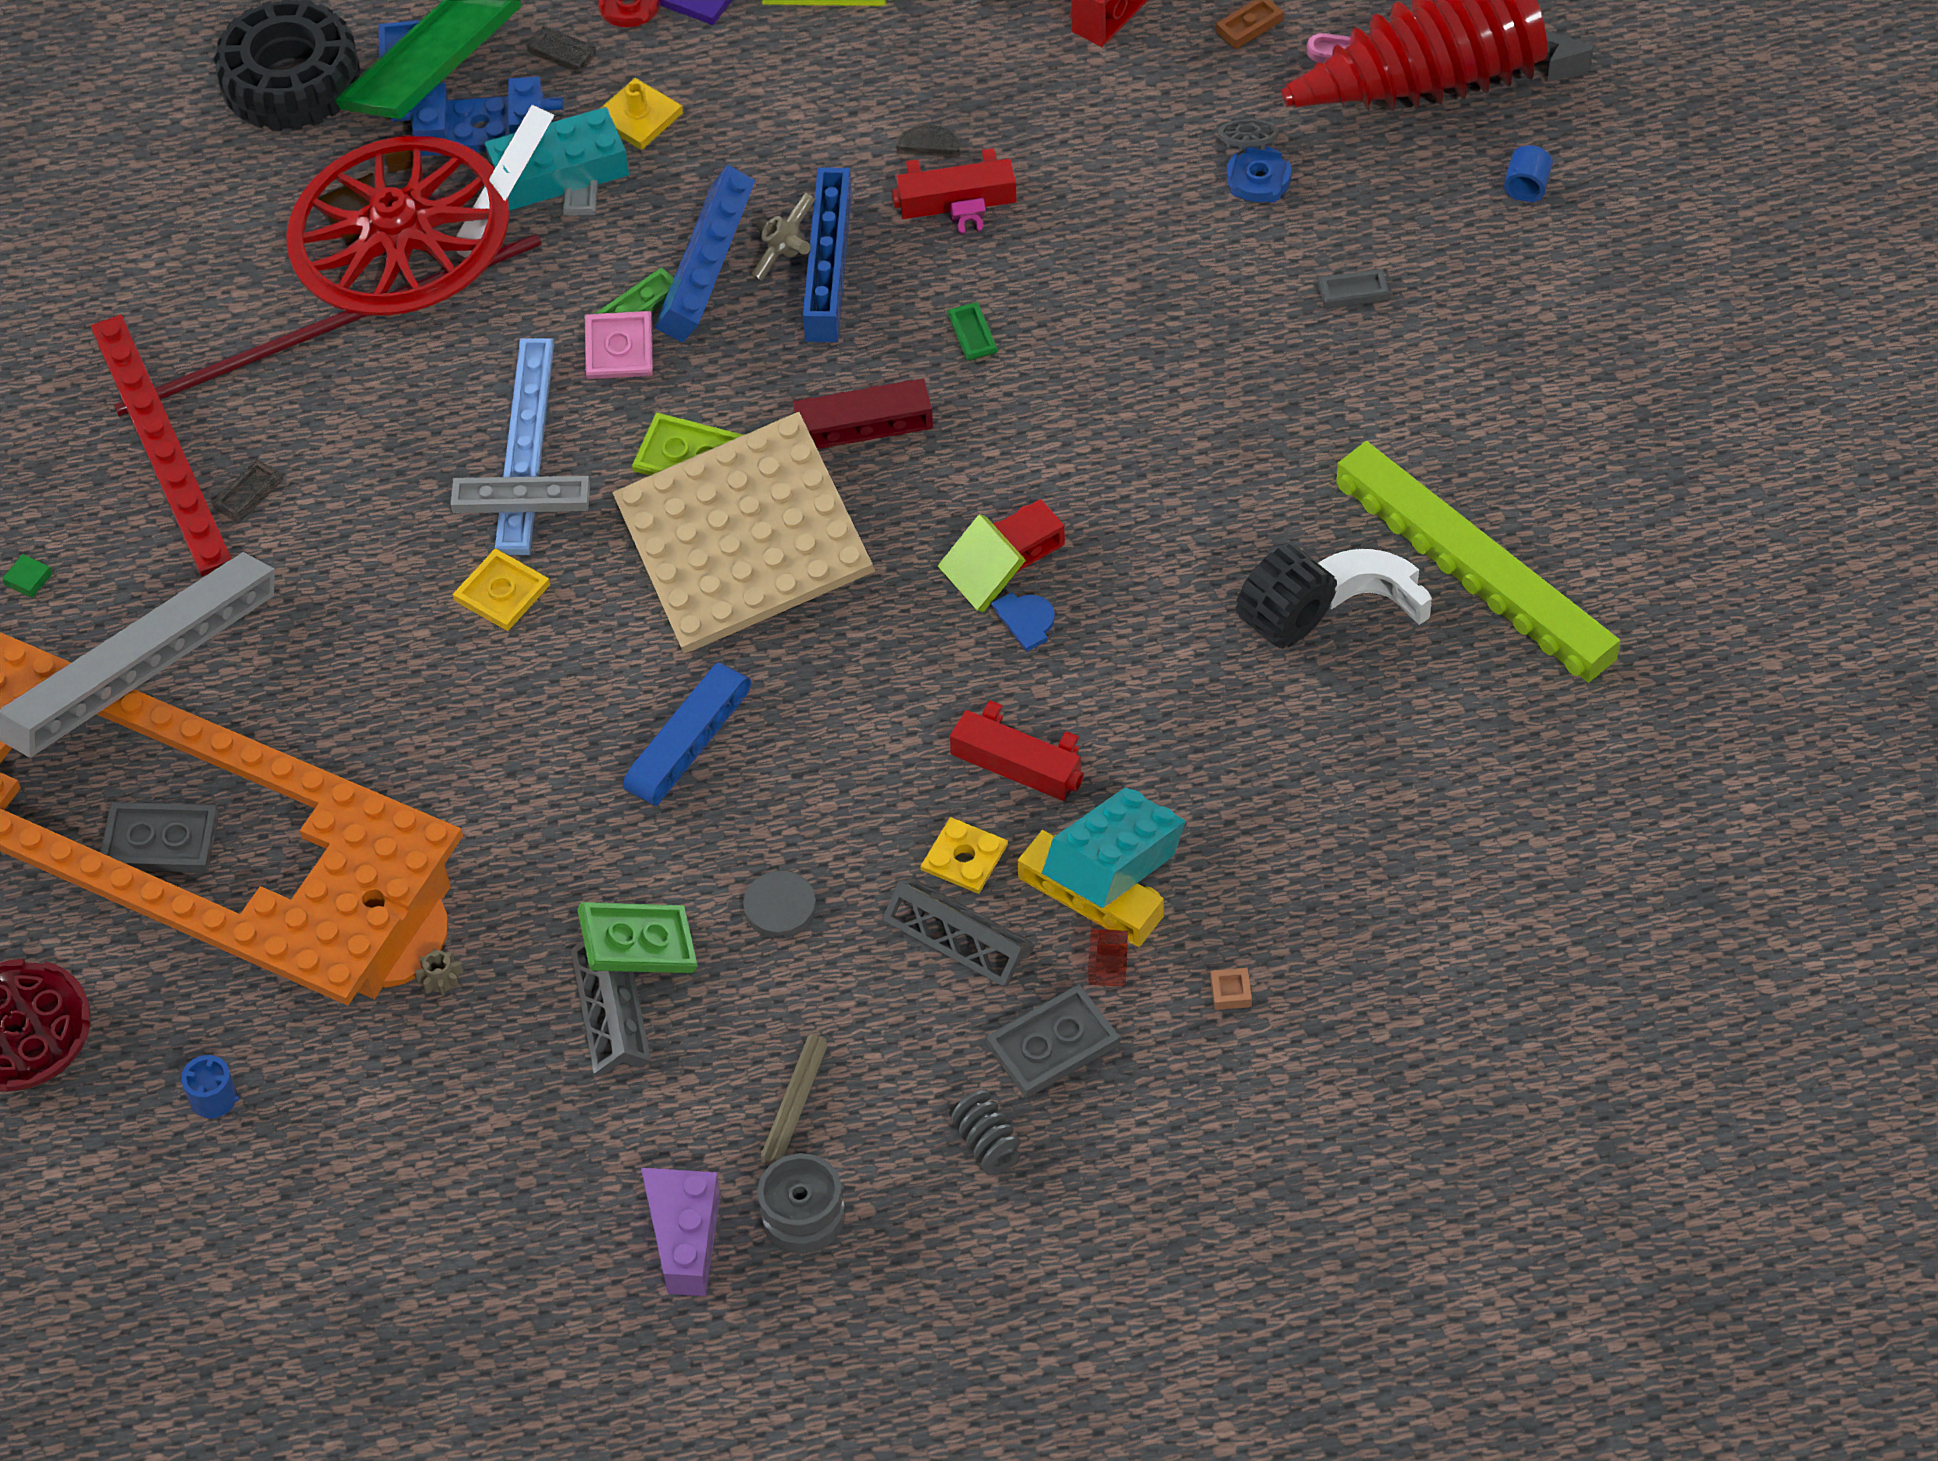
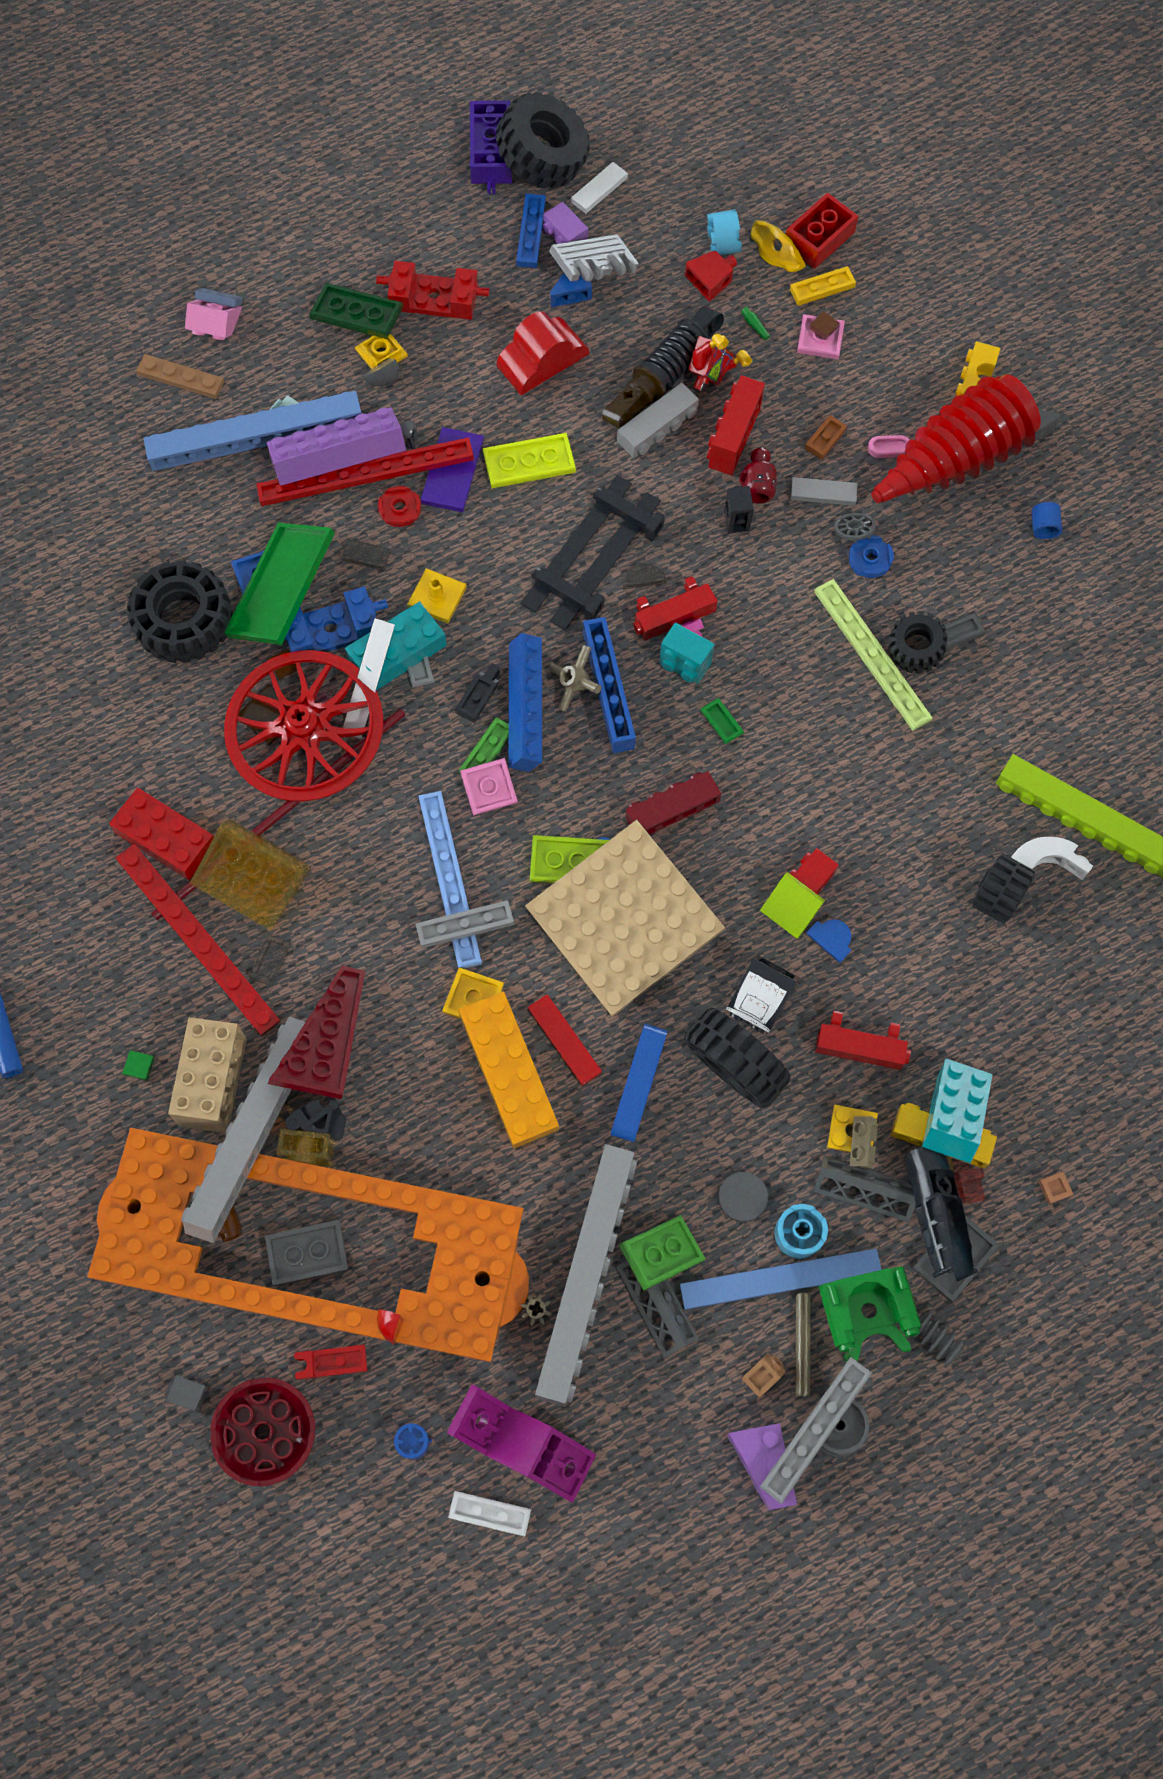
camera: 20 degrees left, 15 degrees up
(67, 777) = (231, 1227): none -> reddish brown brick
(108, 584) = (207, 1075): none -> tan brick
(139, 972) = (332, 1362): none -> red plate
(165, 314) = (162, 833): none -> red brick
(206, 699) = (305, 1147): none -> clear yellow brick
(225, 912) = (389, 1324): none -> red brick
(239, 680) = (318, 1119): none -> black piece
(258, 381) = (249, 874): none -> clear yellow slope
(275, 585) = (323, 1046): none -> dark red wing
(282, 1203) = (489, 1513): none -> white tile
(353, 1113) = (521, 1443): none -> magenta bracket
(512, 677) = (508, 1070): none -> light orange brick
(517, 940) = (584, 1278): none -> light grey brick
(606, 665) = (564, 1040): none -> red tile
(648, 235) = (478, 694): none -> black hinge
(724, 1120) = (764, 1374): none -> medium nougat bracket
(760, 1185) = (815, 1430): none -> light grey tile
(794, 1015) = (777, 1279): none -> medium blue tile
(821, 708) = (737, 1057): none -> black tyre
(840, 955) = (811, 1221): none -> medium azure brick
(842, 150) = (579, 596): none -> black fence
(895, 1040) = (894, 1305): none -> green piece
(898, 660) = (762, 994): none -> slope
(947, 235) = (686, 653): none -> teal brick
(975, 849) = (863, 1133): none -> dark tan hinge
(1046, 954) = (940, 1212): none -> black piece
(1086, 80) = (738, 509): none -> black brick
(1133, 51) = (760, 476): none -> dark red piece
(1218, 294) = (873, 655): none -> yellowish green tile
(1223, 86) = (823, 491): none -> light grey tile
(1276, 264) = (918, 625): none -> black tyre

